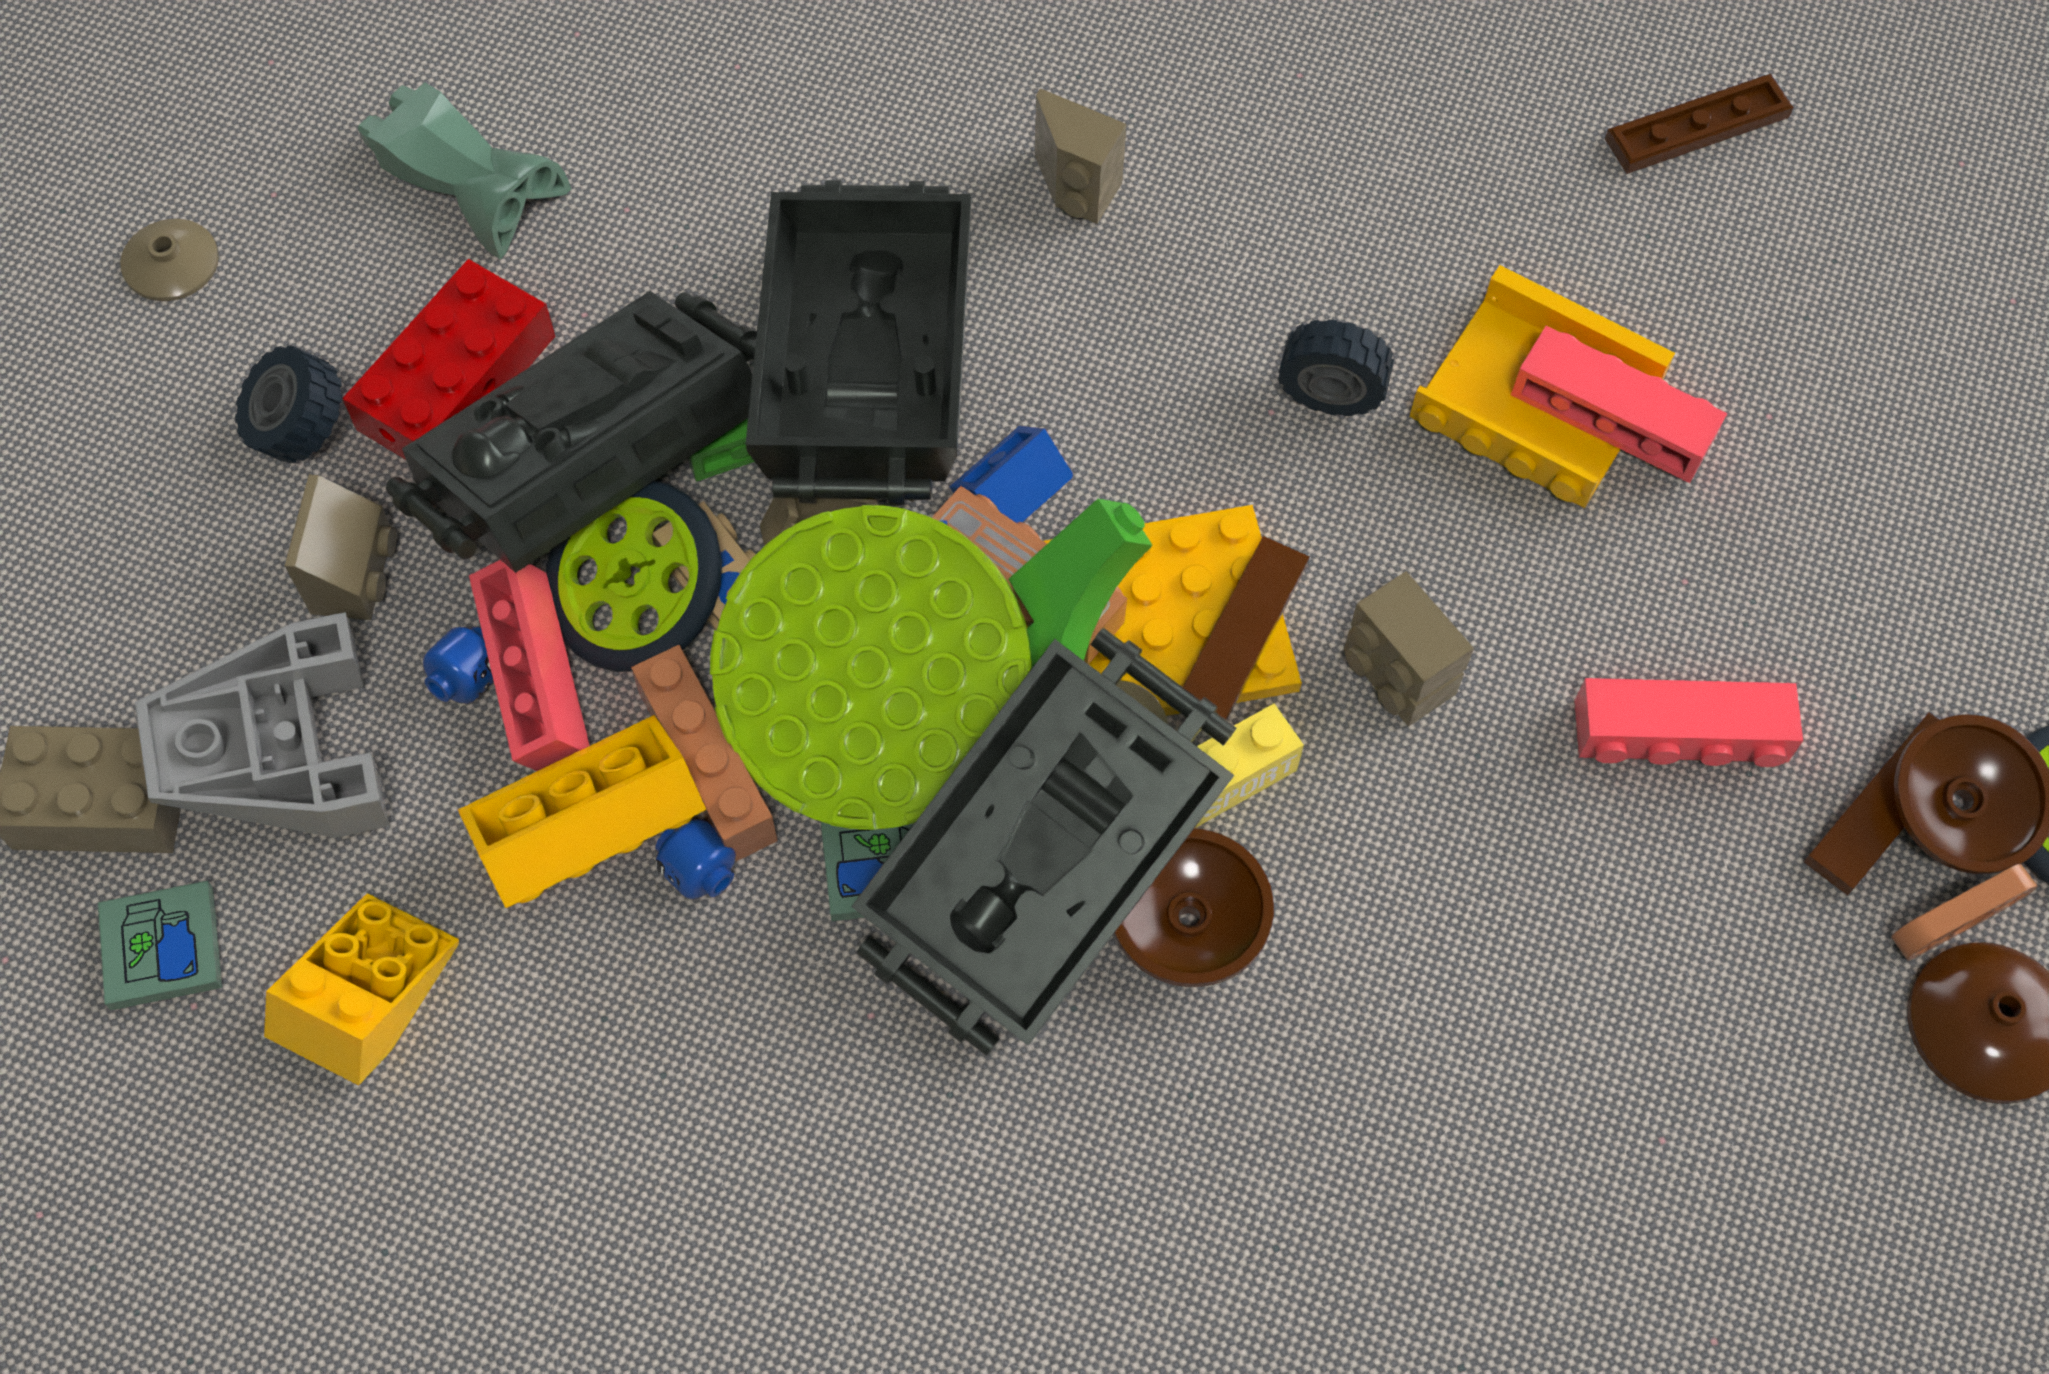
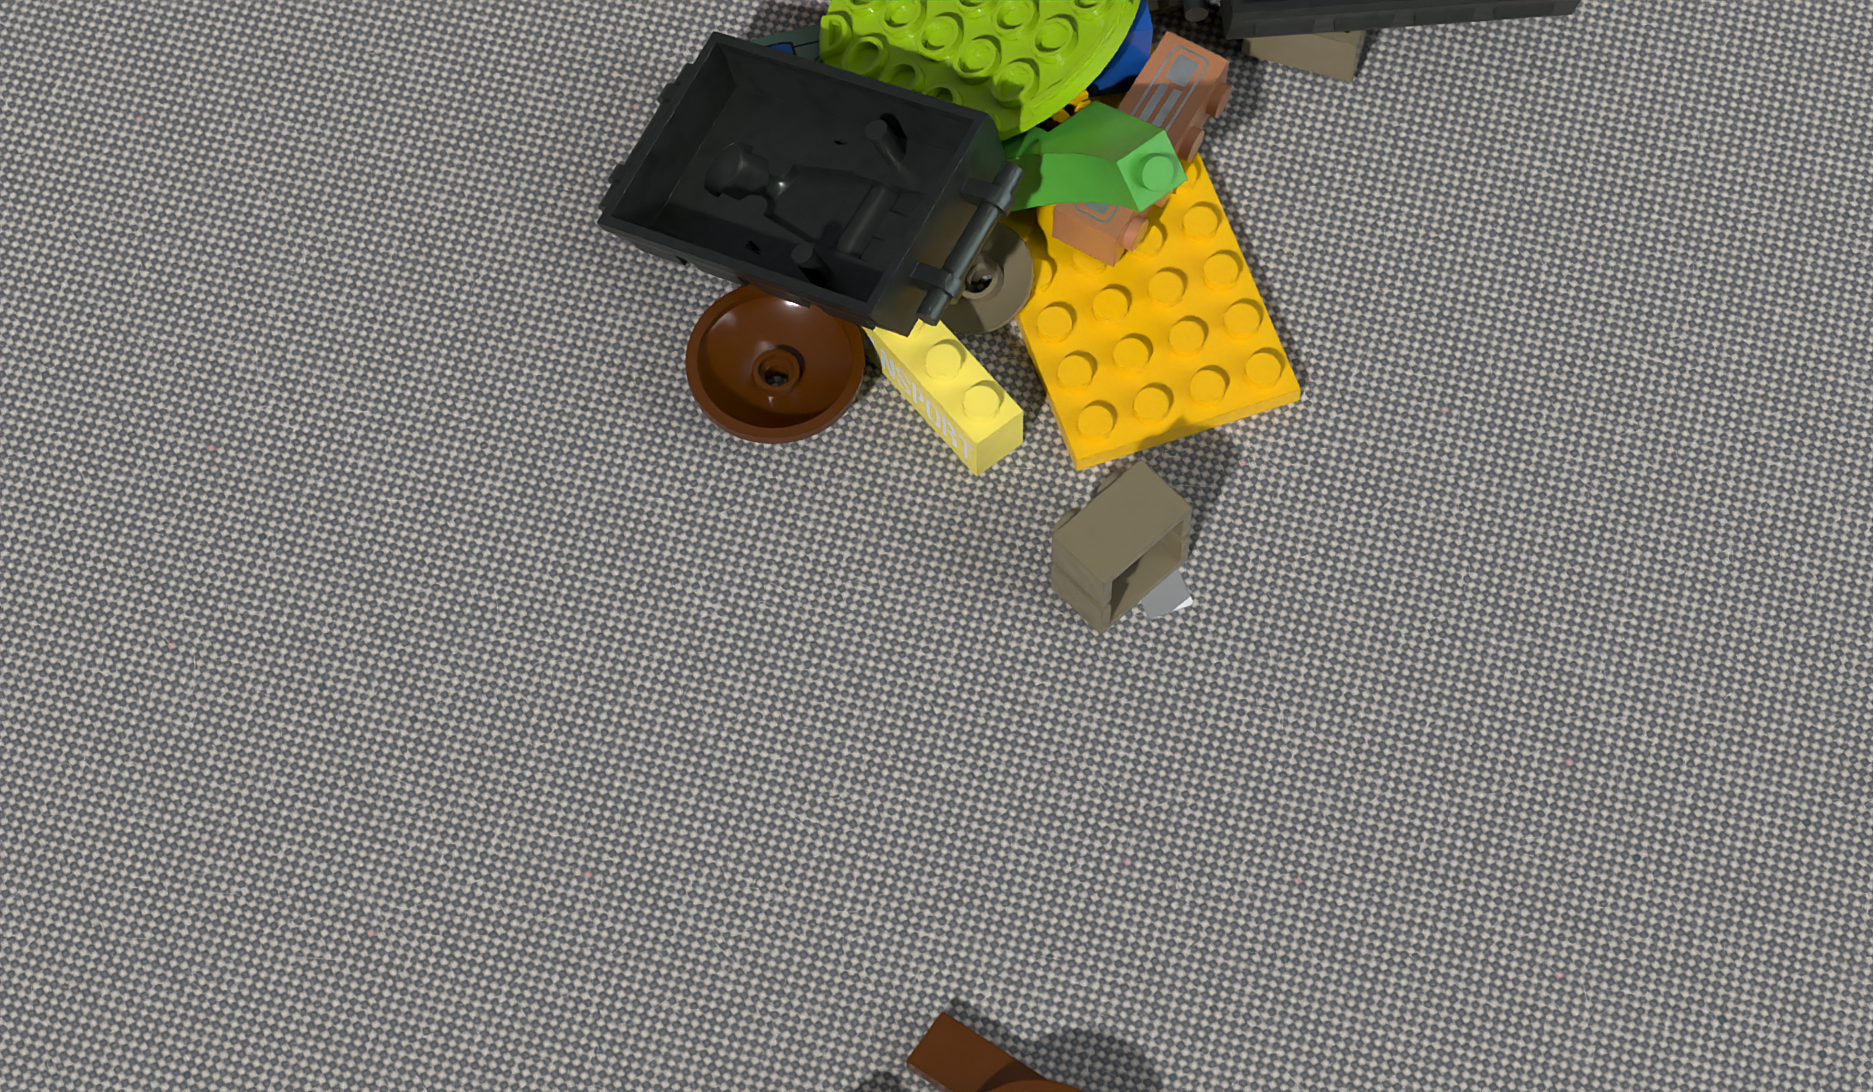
camera: 85 degrees right, 0 degrees up
(1018, 473) = (1286, 145): blue panel -> none
(1078, 155) = (1725, 138): dark tan slope -> none
(1246, 625) = (1119, 381): reddish brown tile -> none
(1336, 367) = (1486, 441): black wheel -> none
(1474, 387) = (1525, 696): yellow panel -> none
(1618, 403) = (1515, 771): coral brick -> none
(1688, 721) = (1092, 870): coral brick -> none

